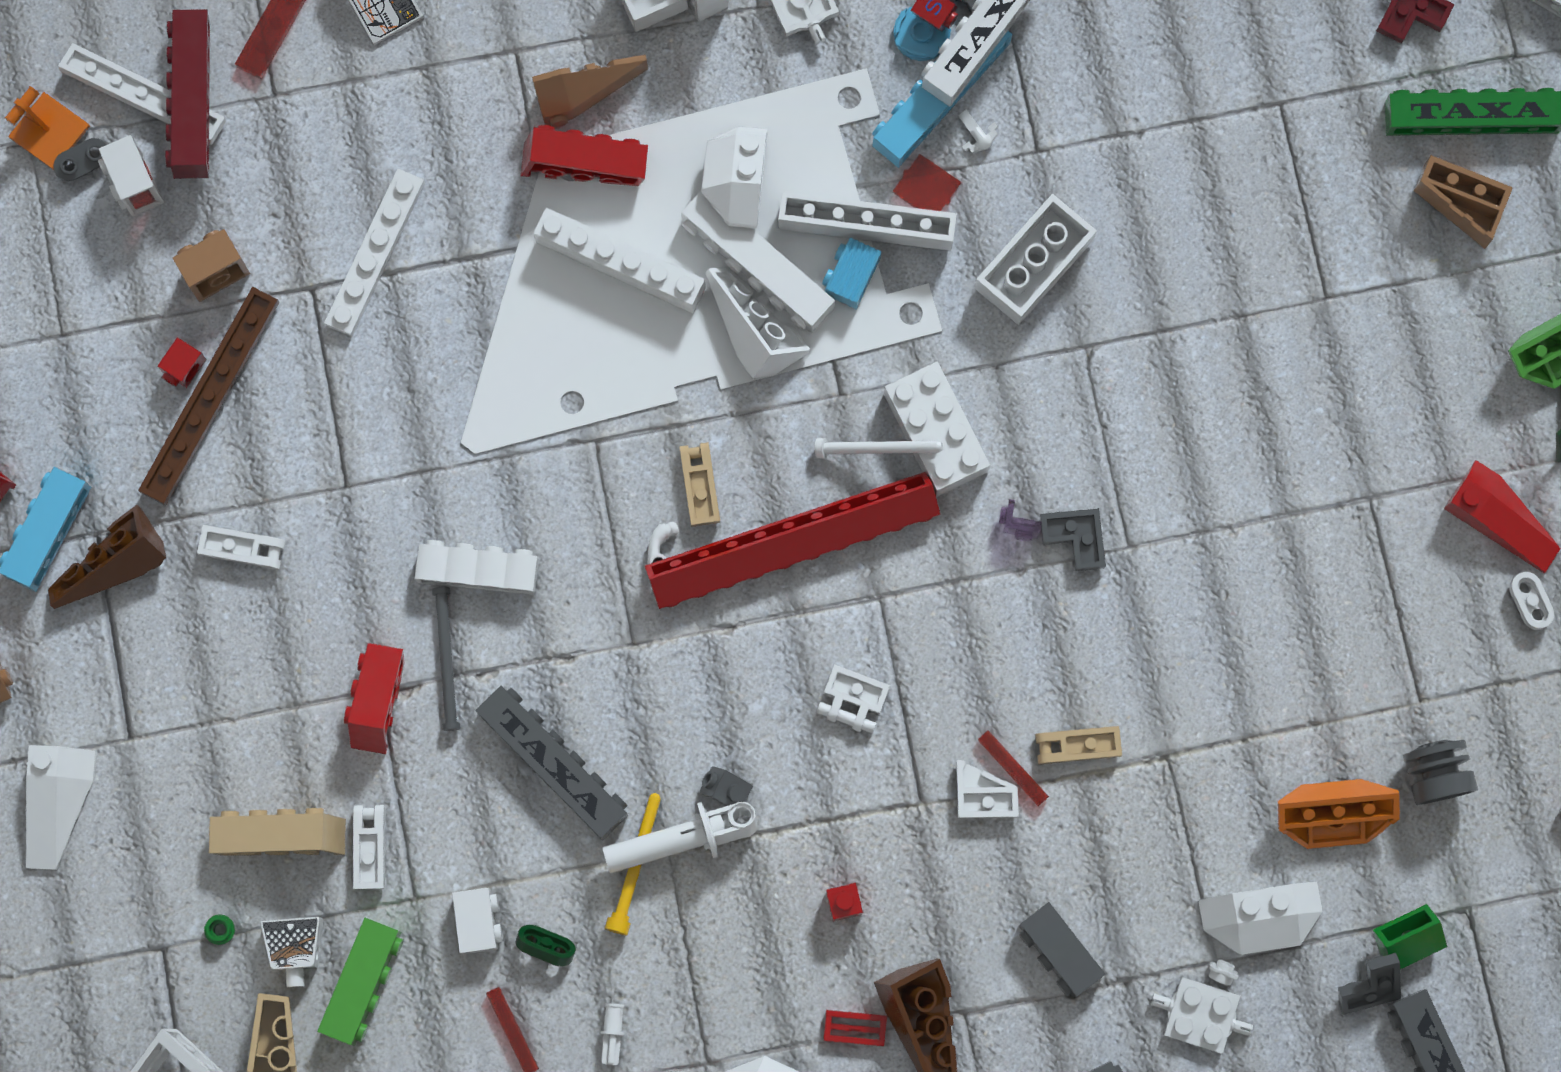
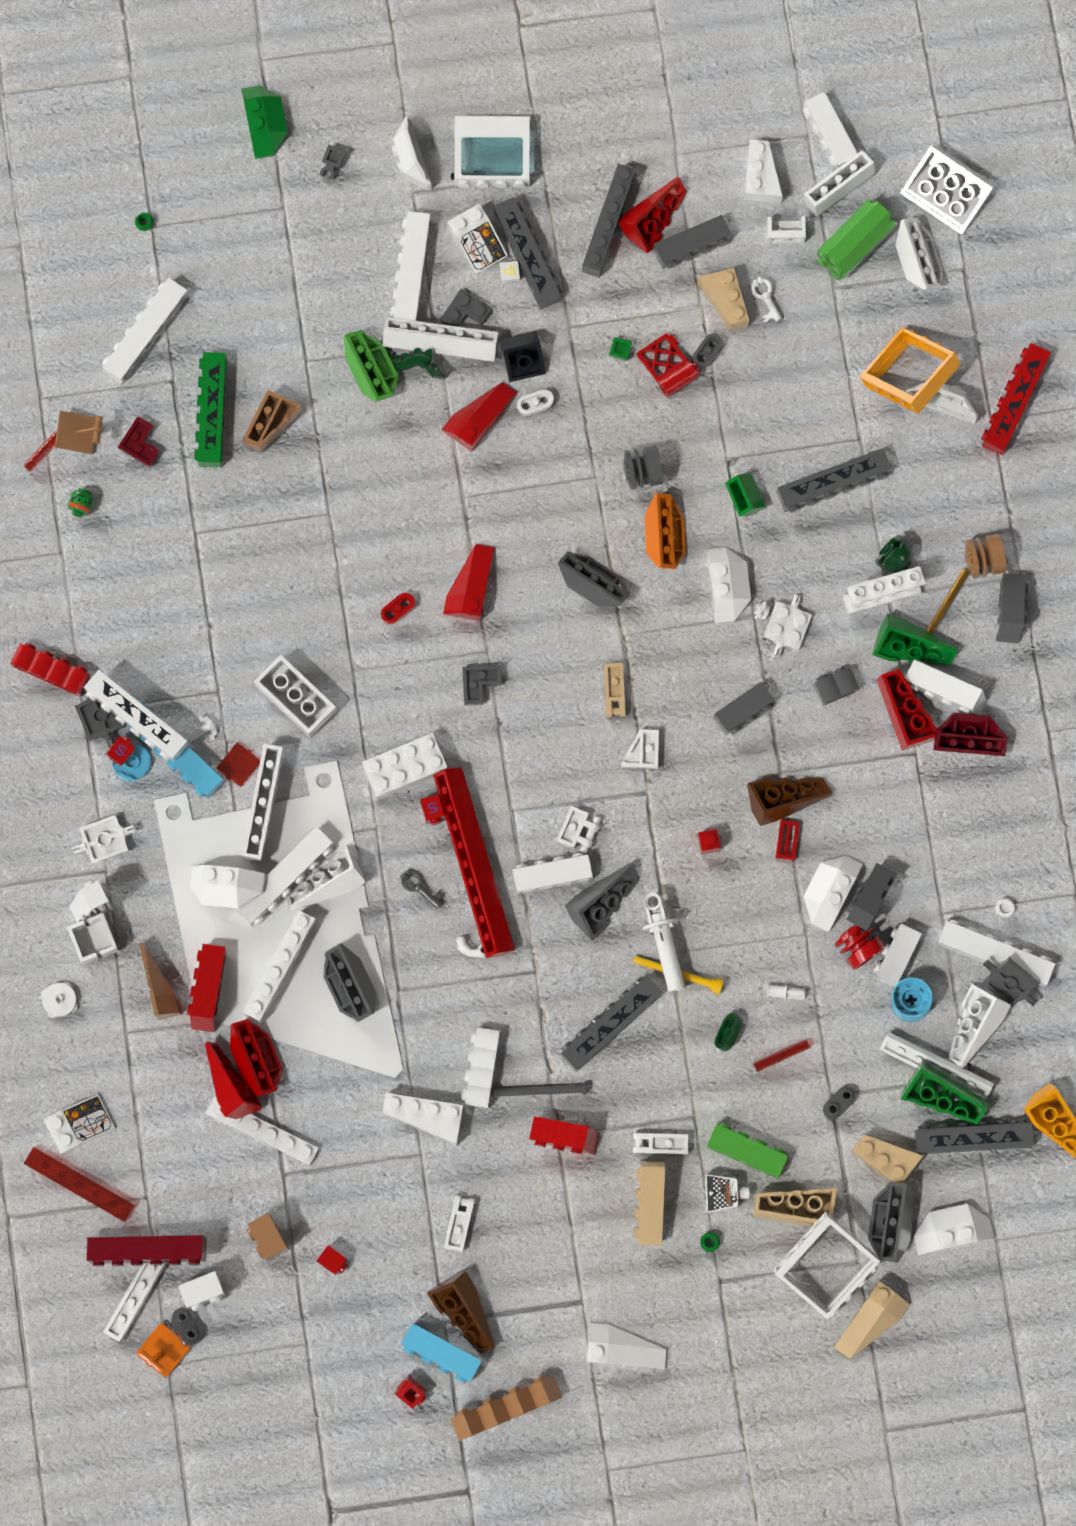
camera: 90 degrees left, 0 degrees up
(208, 396) = (355, 1243): reddish brown plate -> none
(400, 493) = (430, 1116): none -> white wedge
(432, 199) = (230, 1092): none -> red wedge
(476, 920) = (711, 1076): white brick -> none
(480, 234) = (255, 1057): none -> red wedge
(598, 365) = (349, 983): none -> dark grey wedge
(700, 486) = (432, 921): tan plate -> none
(724, 787) = (632, 914): dark grey bracket -> none
(734, 485) = (433, 900): none -> dark grey piece
(739, 733) = (596, 904): none -> dark grey wedge
(781, 661) = (552, 874): none -> white brick
(823, 447) = (412, 840): white bar -> none
(852, 272) = (296, 815): medium azure brick -> none
(871, 473) = (432, 810): none -> red brick
(1013, 768) = (626, 732): clear red piece -> none
(1021, 528) = (473, 715): clear purple bracket -> none
(1186, 406) = (397, 608): none -> red plate
(1224, 515) = (469, 588): none -> red wedge
(1251, 702) = (593, 580): none -> dark grey wedge
(1381, 986) = (773, 514): dark grey plate -> none

